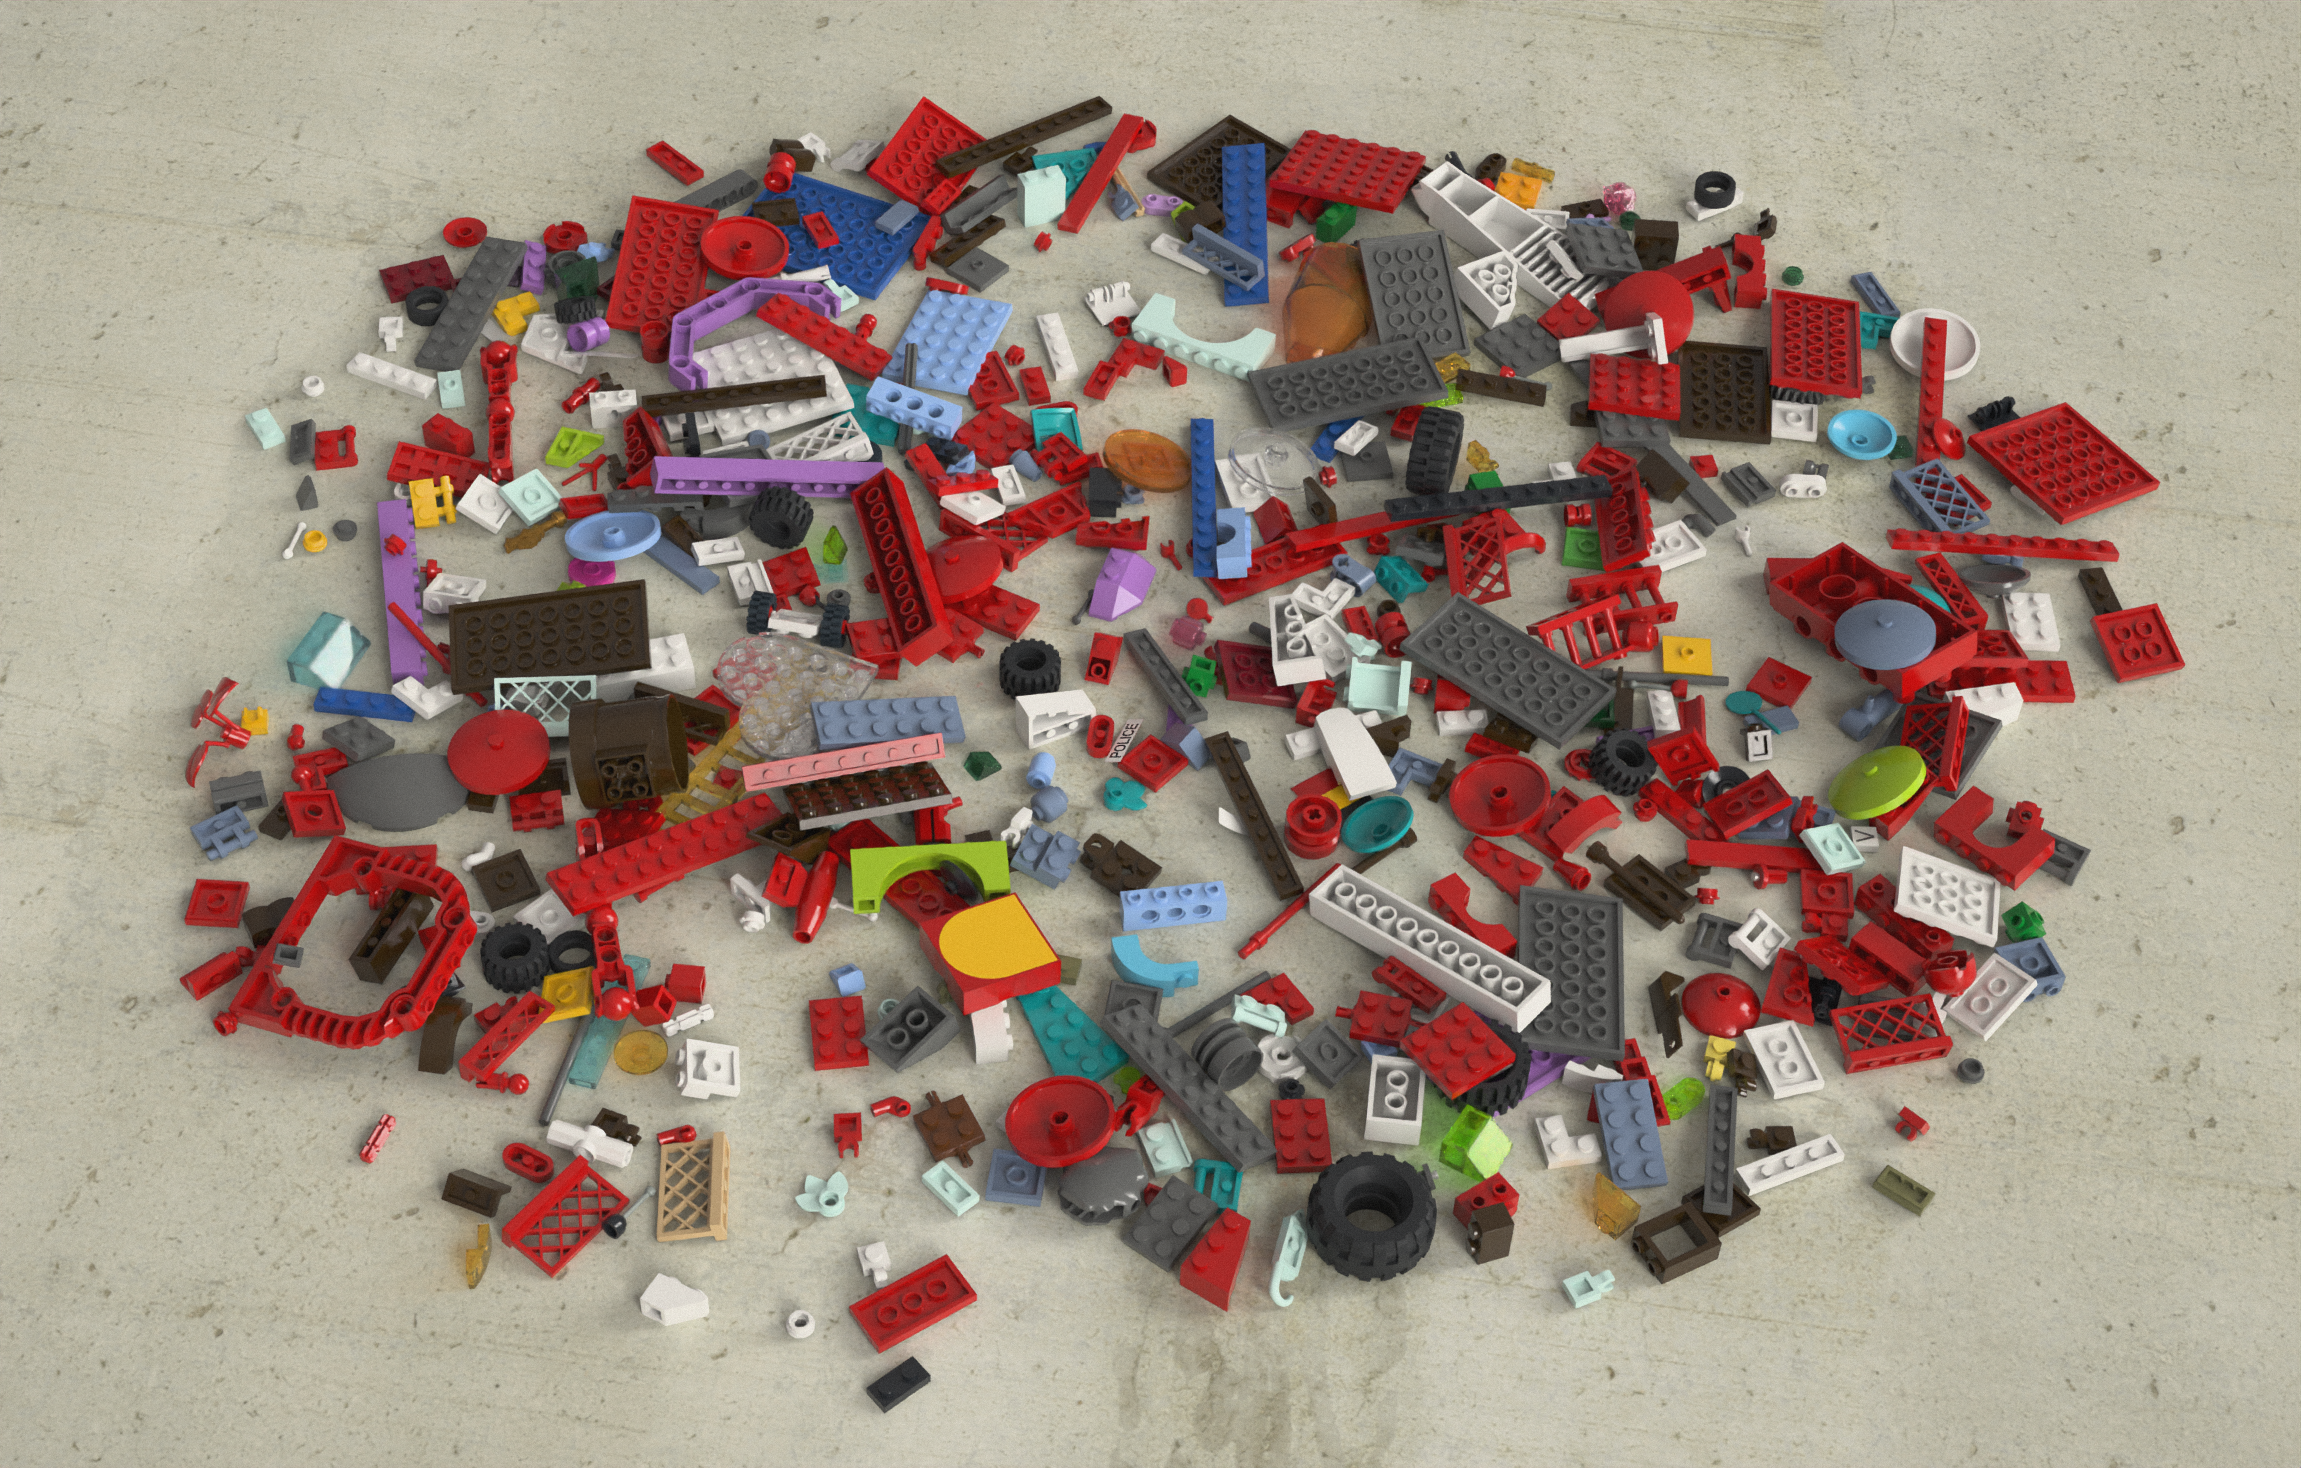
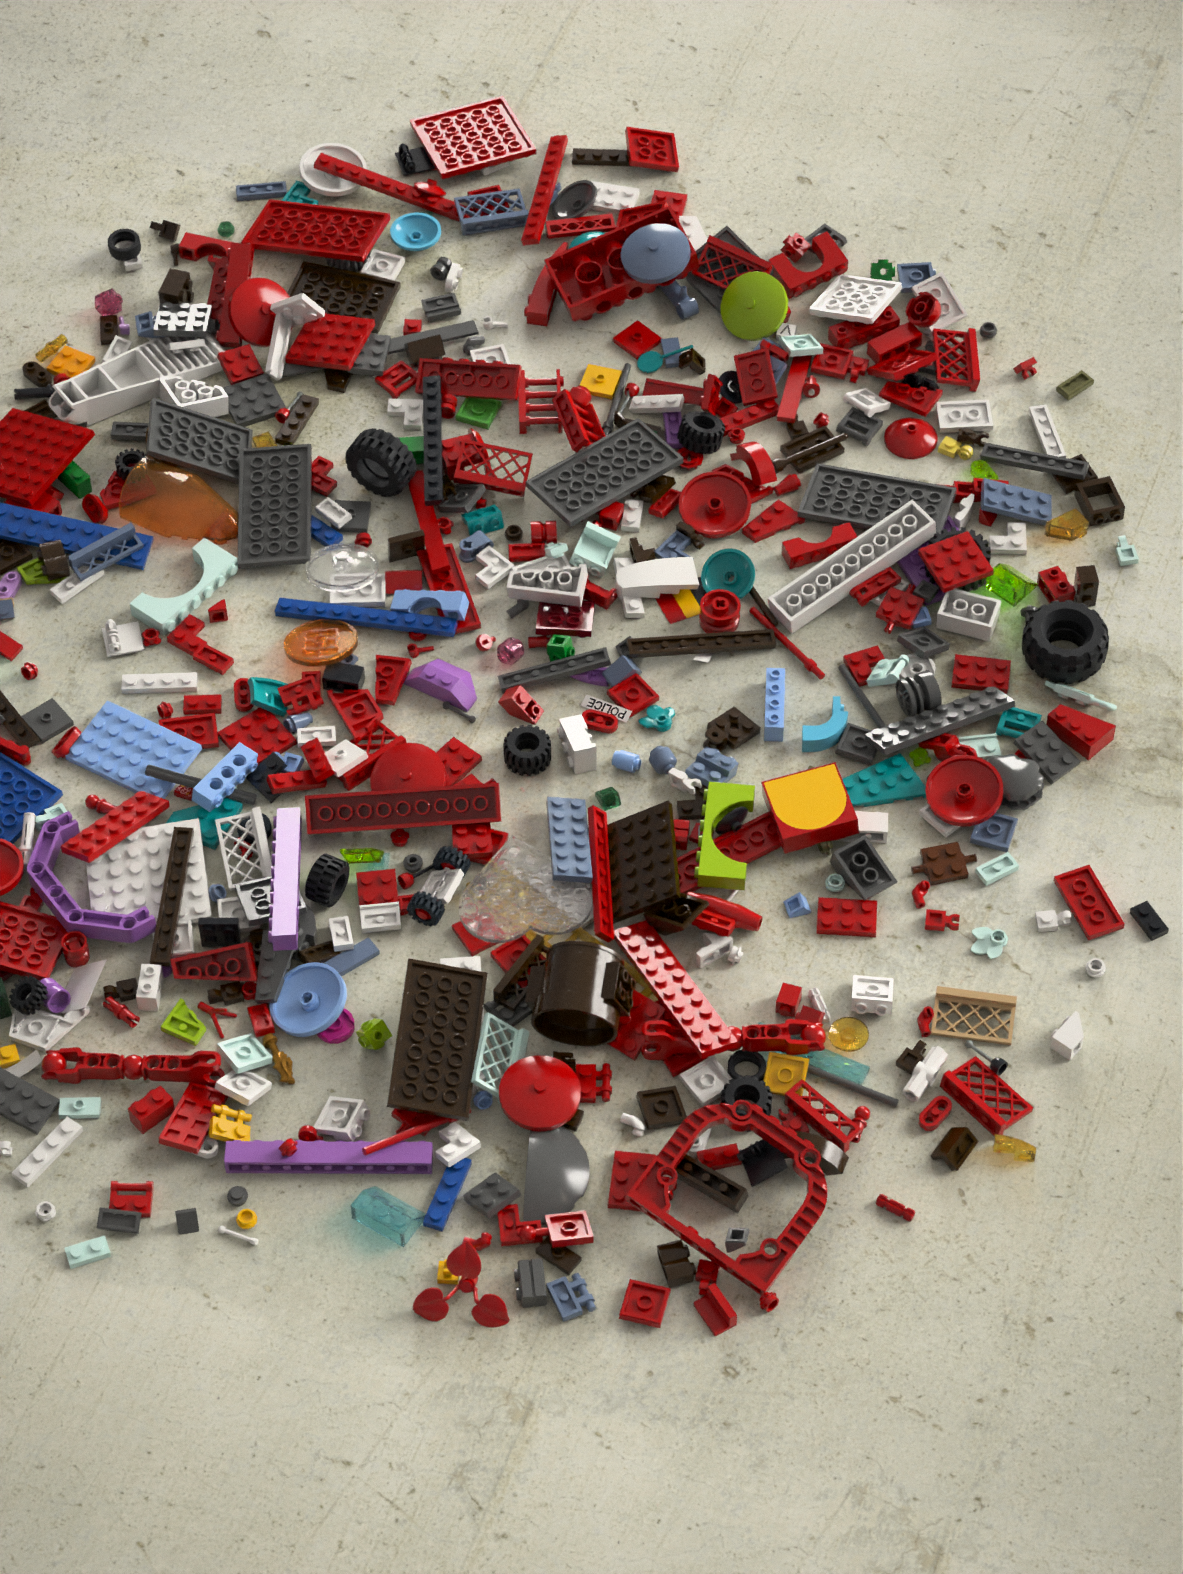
camera: 75 degrees left, 5 degrees up
(1296, 1093) = (944, 675): black plate -> none
(1627, 220) = (129, 306): clear green plate -> none
(1667, 1010) = (919, 463): dark brown piece -> none
(1773, 1138) = (1025, 436): dark brown plate -> none

